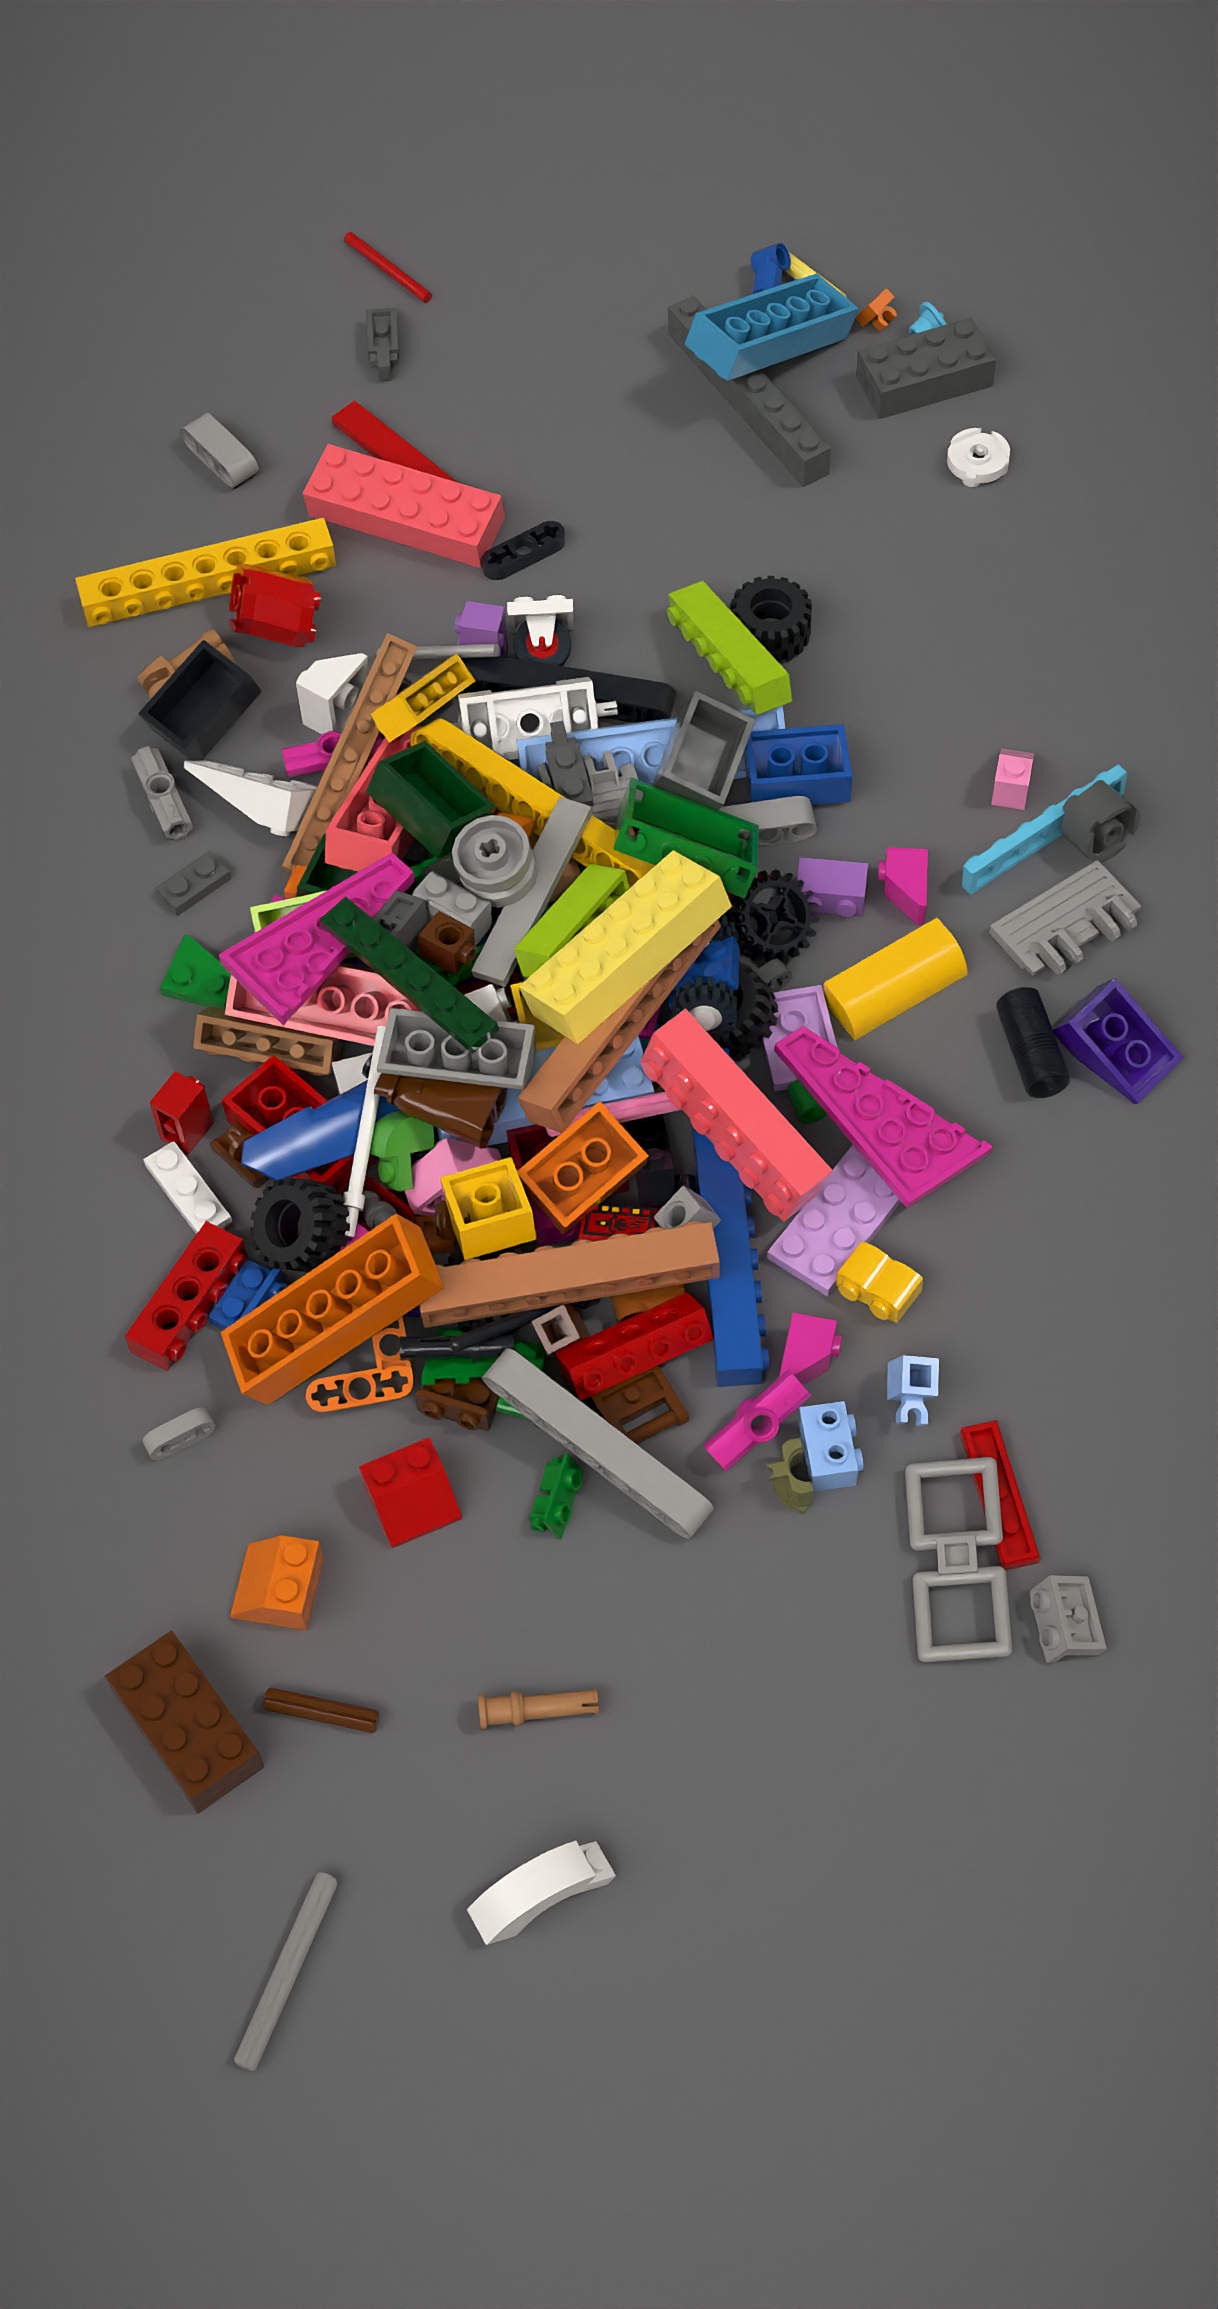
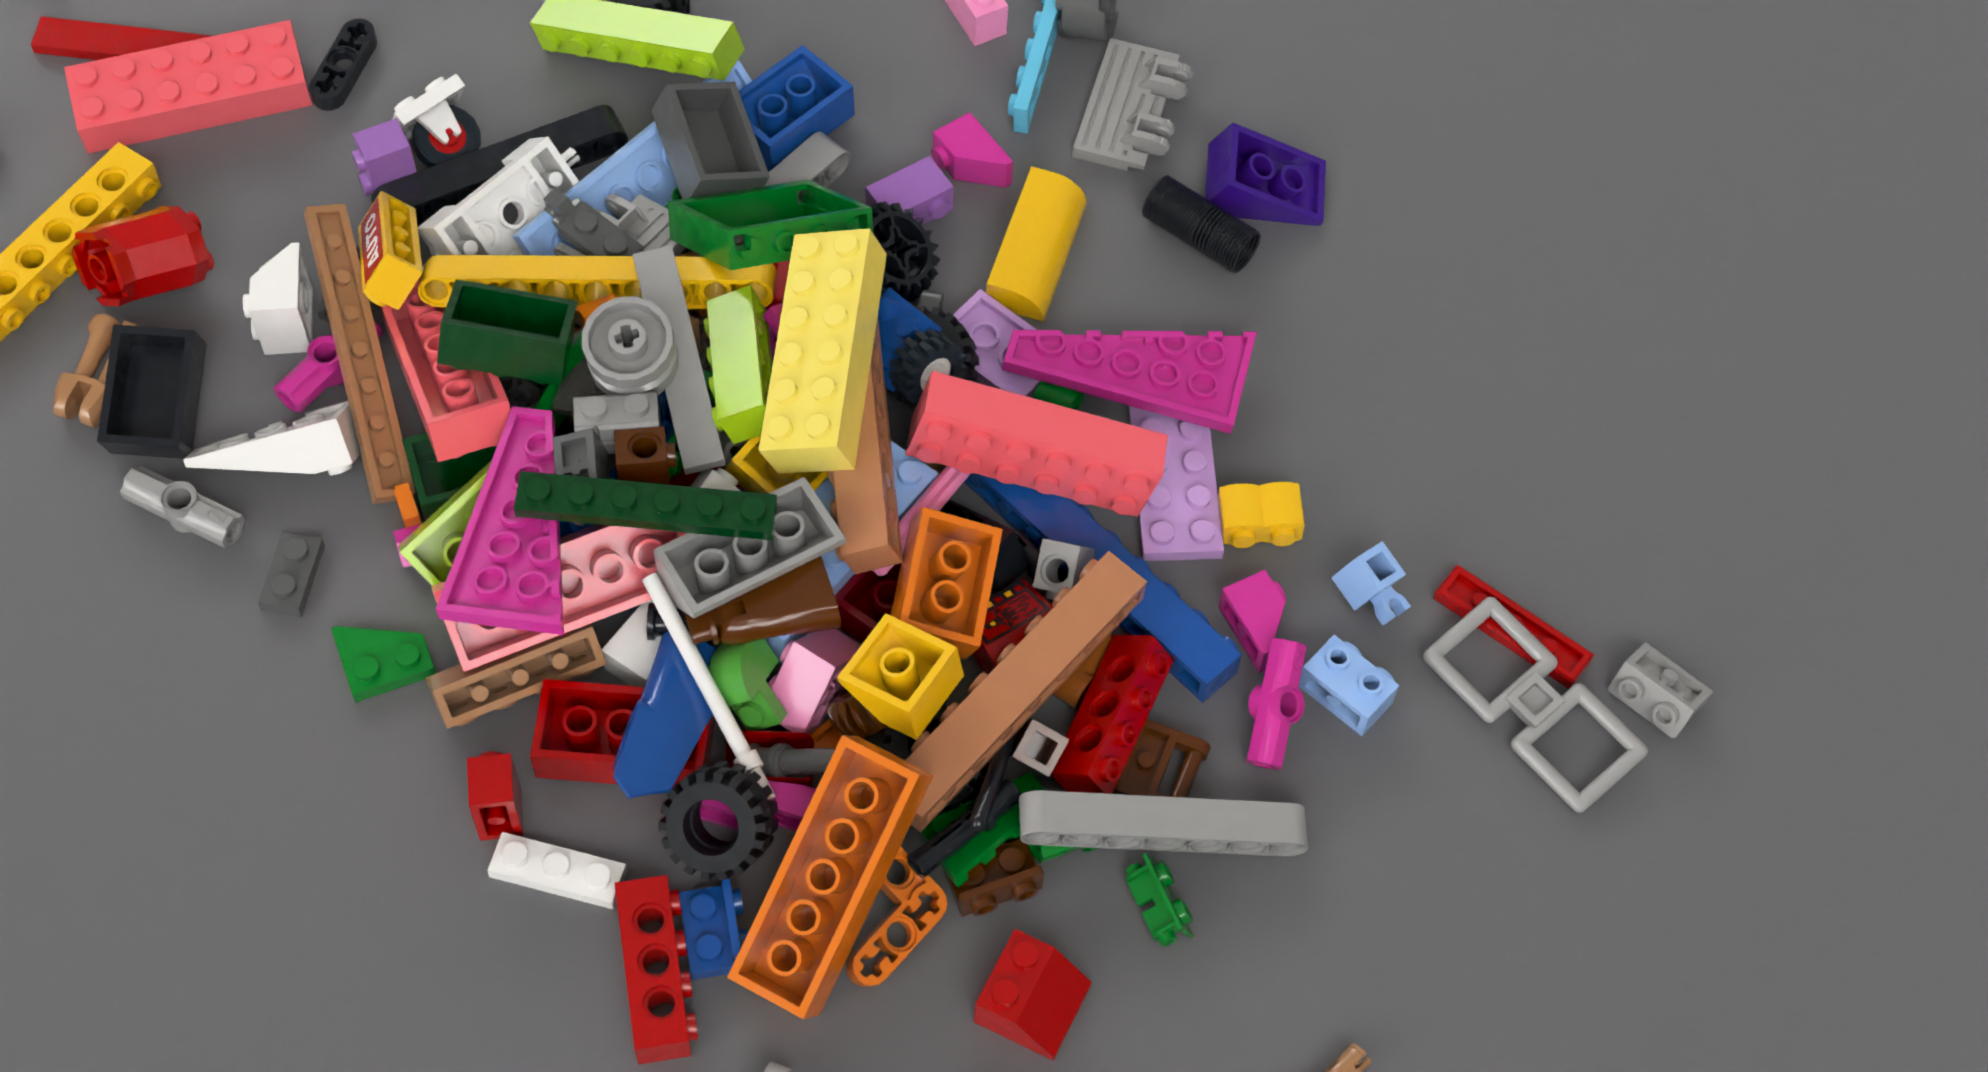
camera: 45 degrees left, 0 degrees up
(230, 1147) = (587, 795): reddish brown hips -> none
(463, 651) = (362, 197): light grey bar -> none
(789, 1490) = (1339, 741): olive piece -> none

